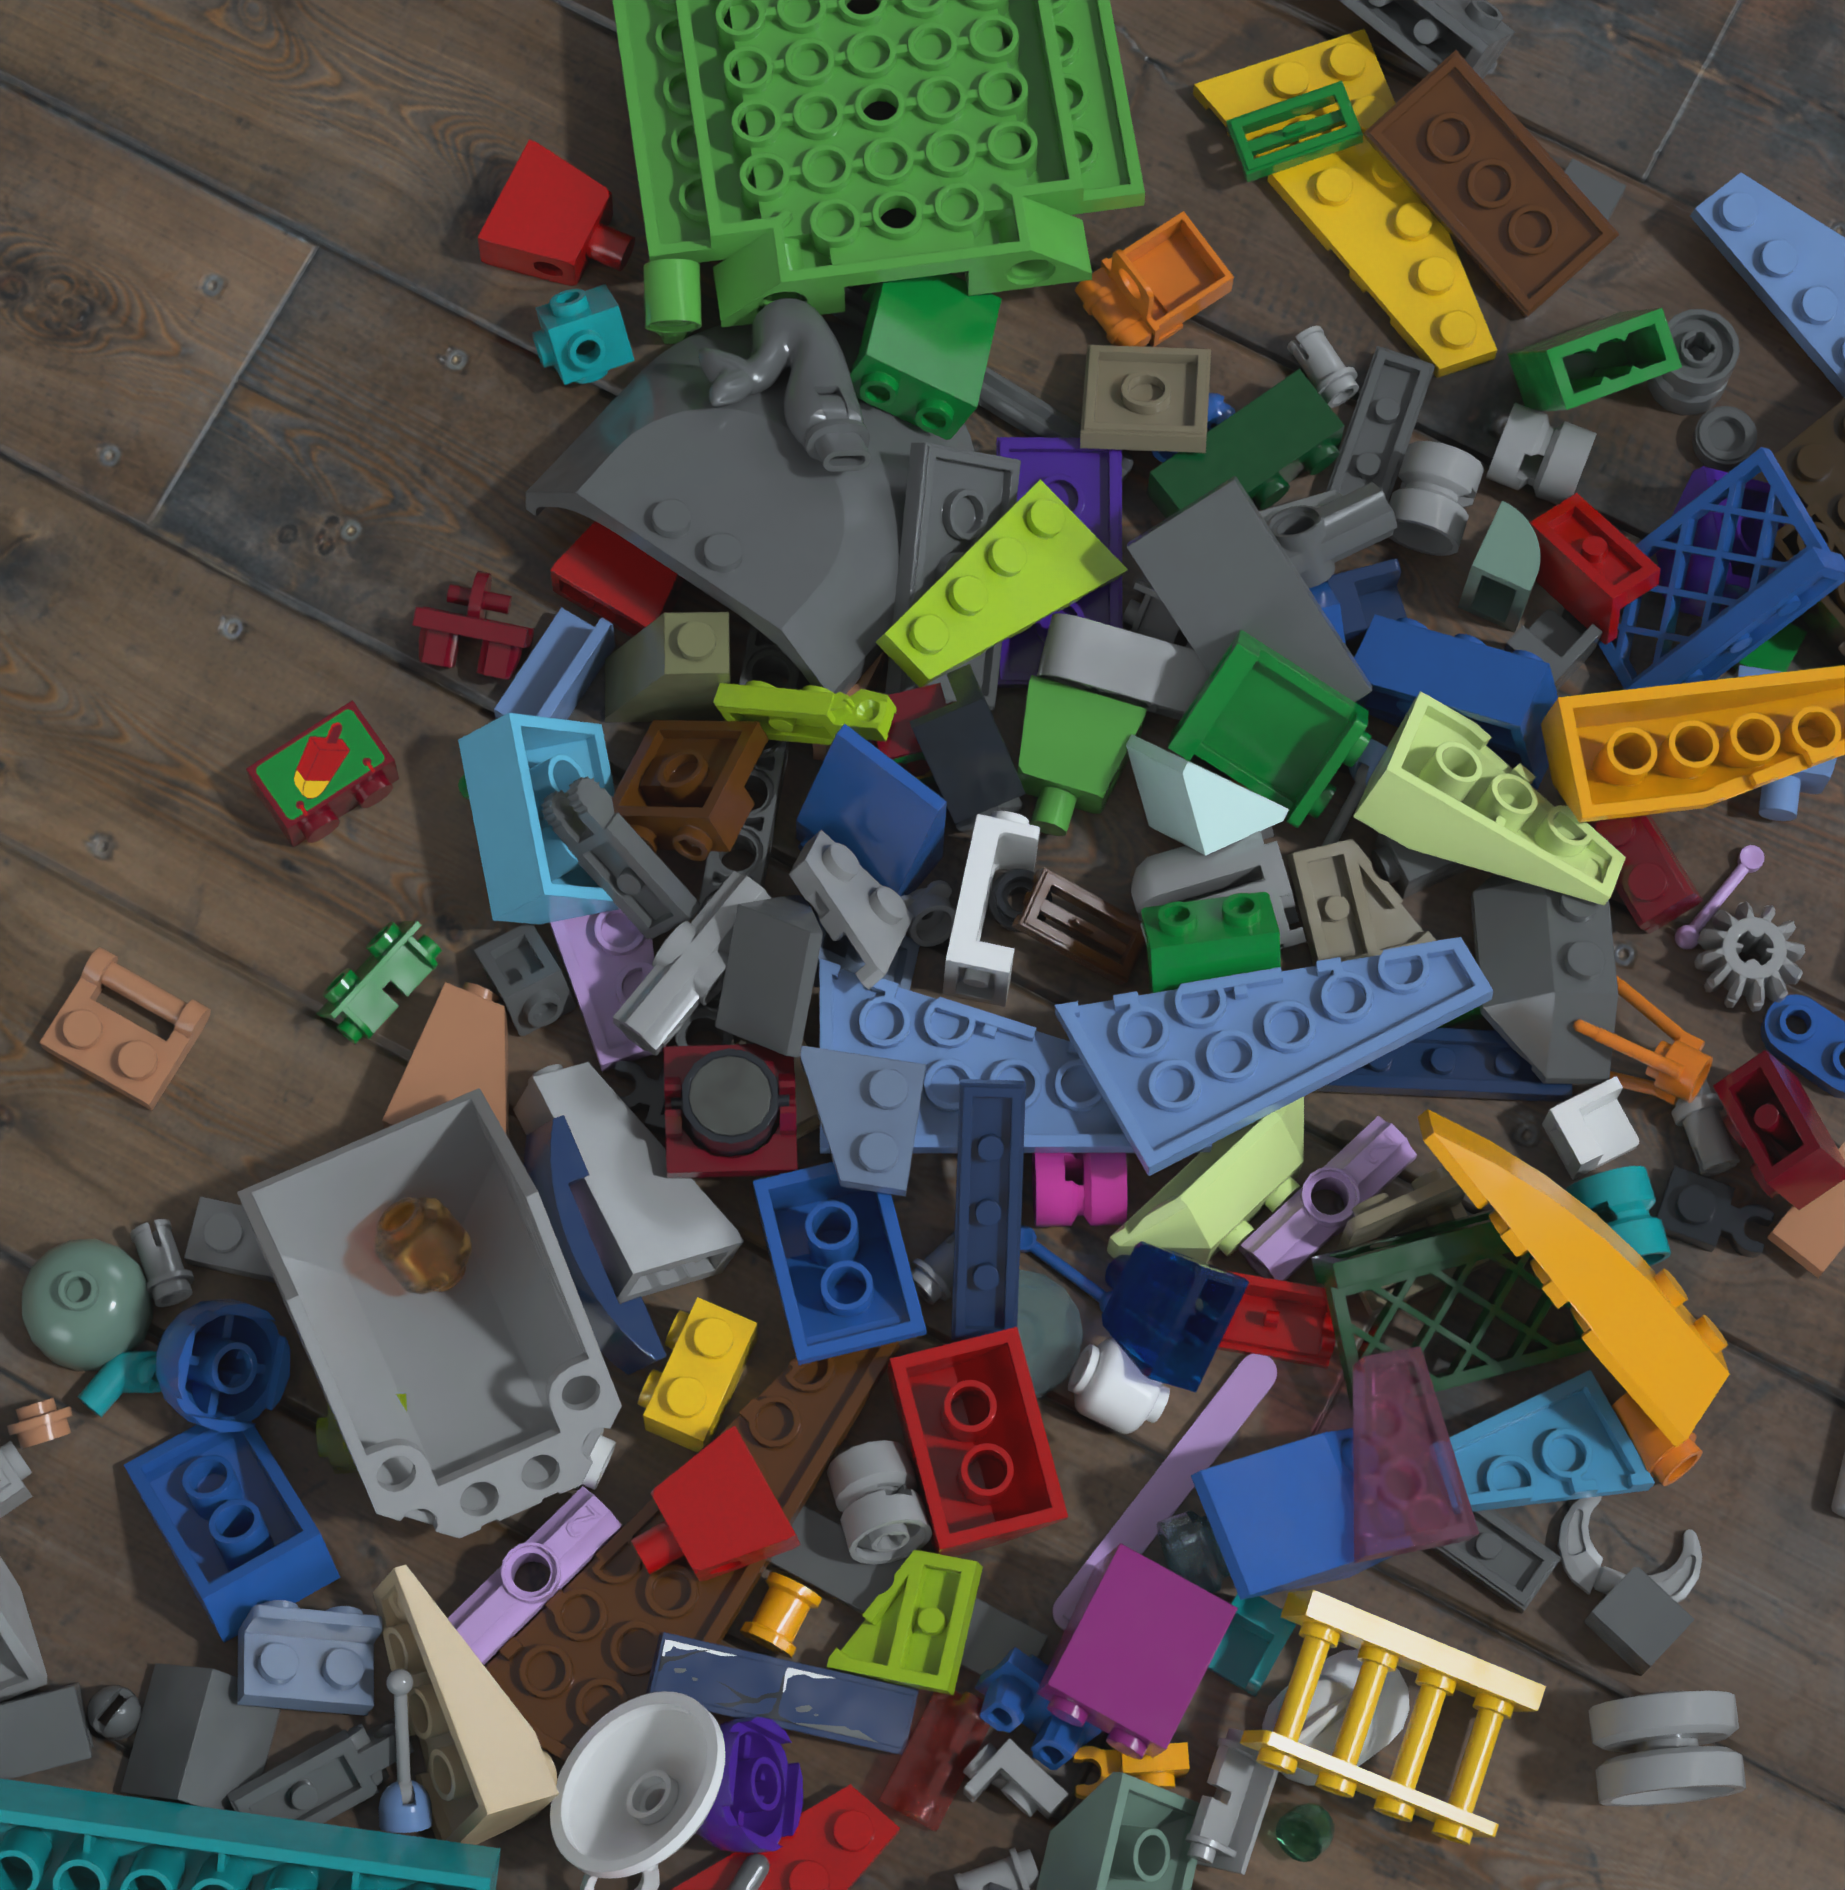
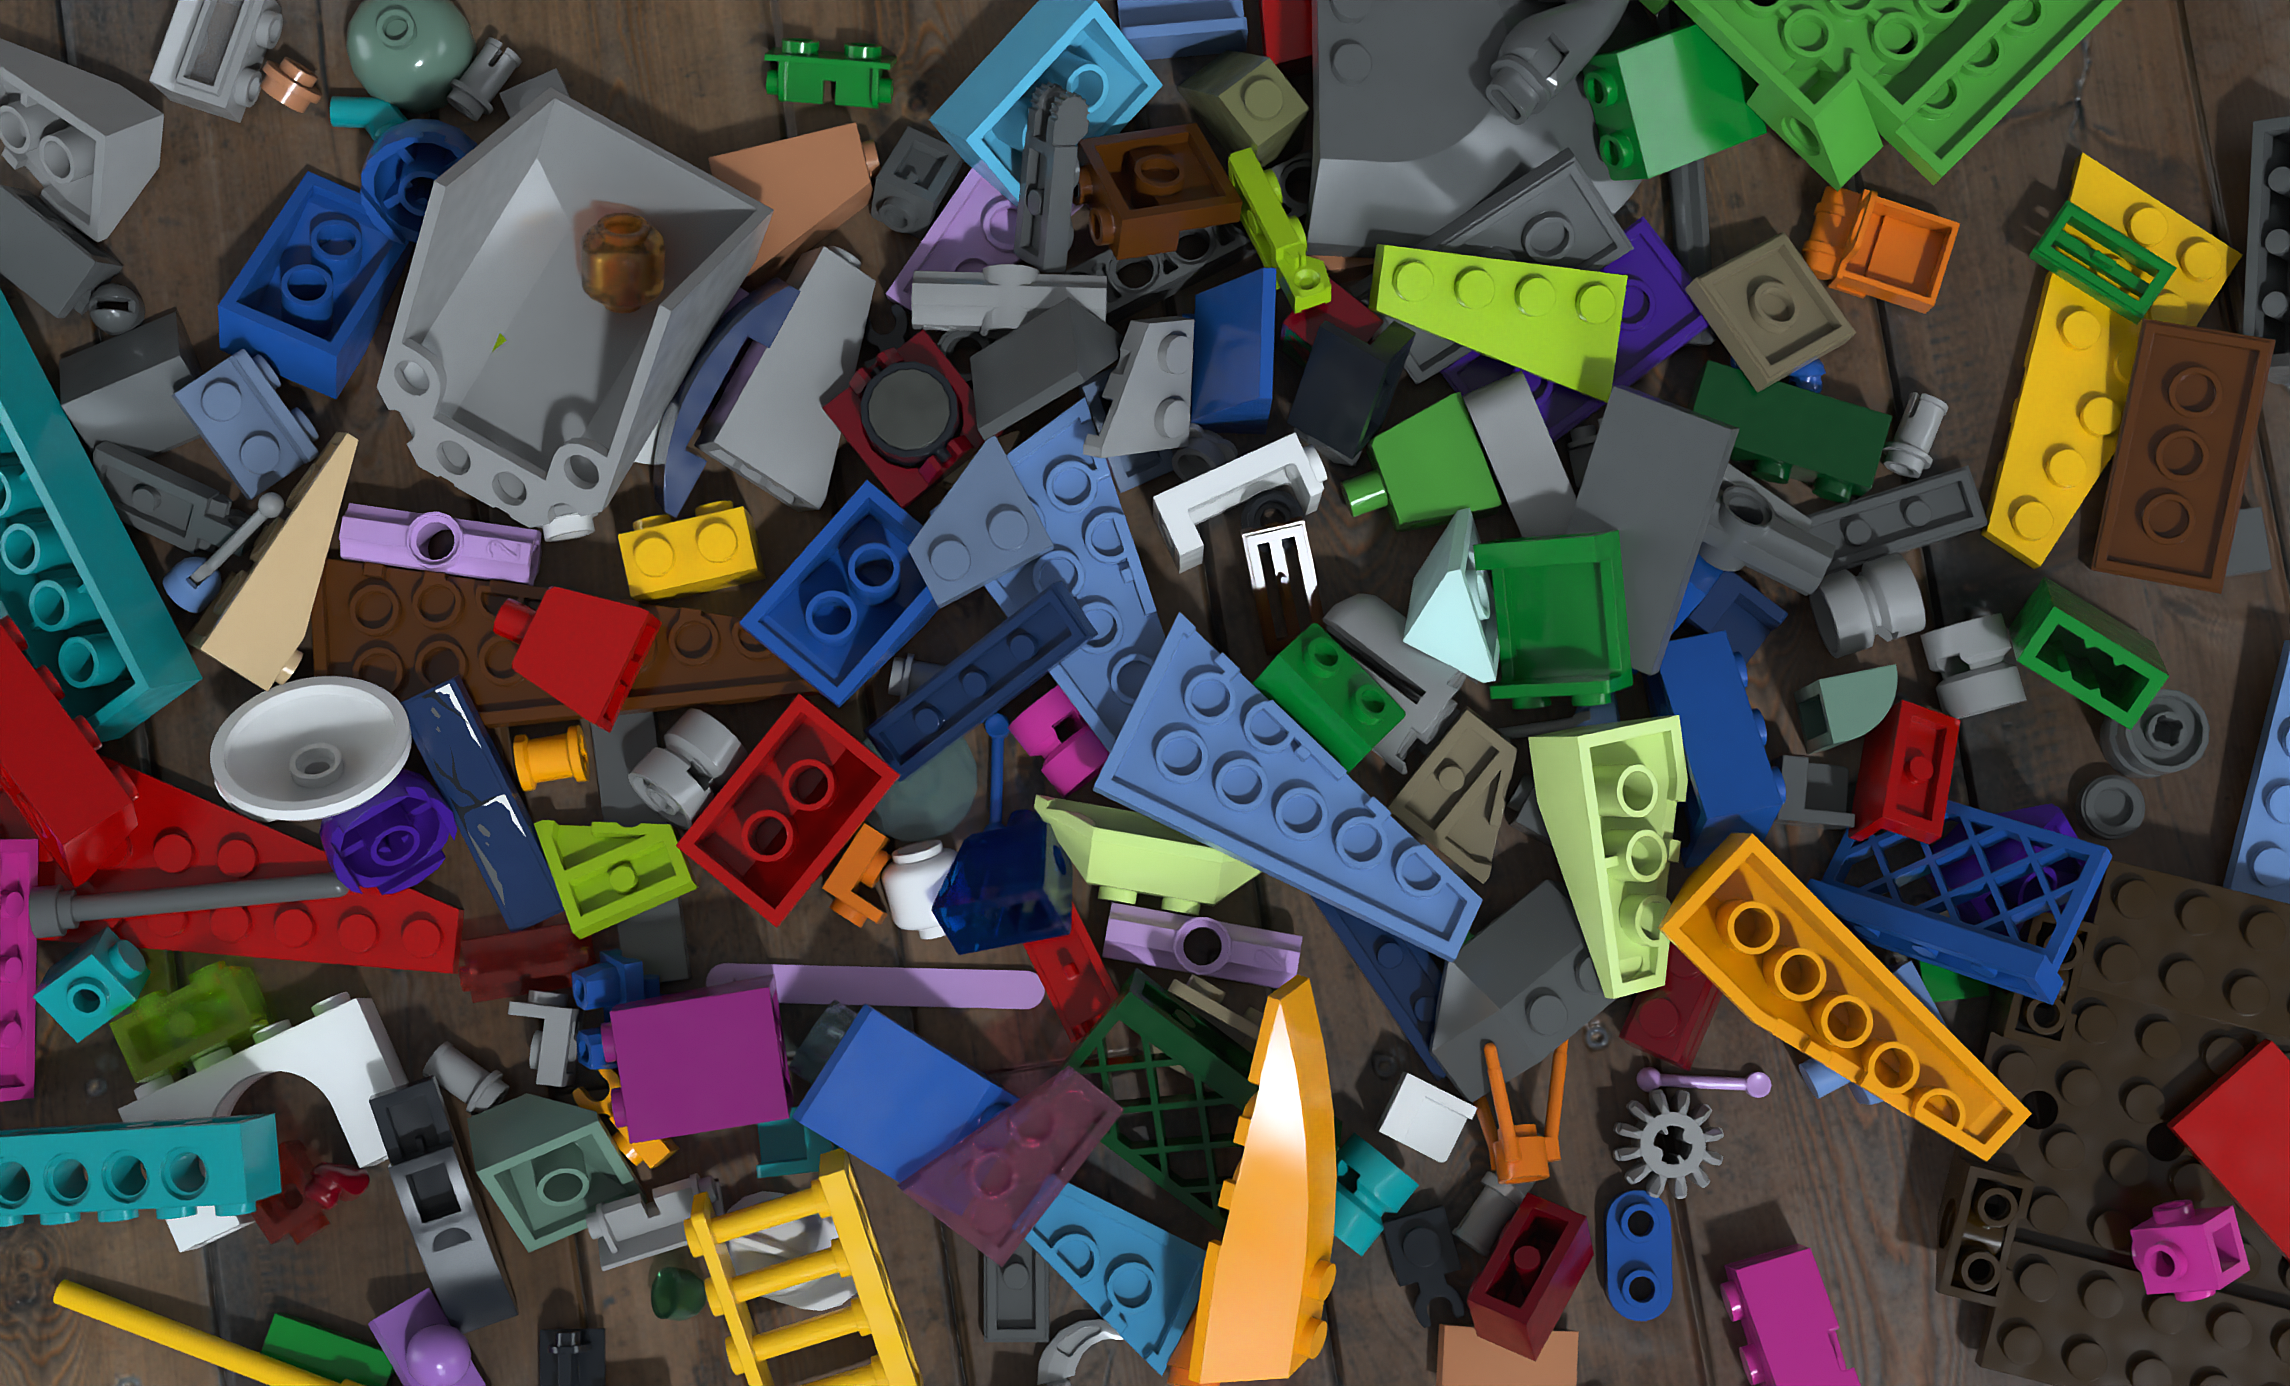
camera: 60 degrees right, 10 degrees up
(1062, 1424) = (860, 864): none -> orange bracket

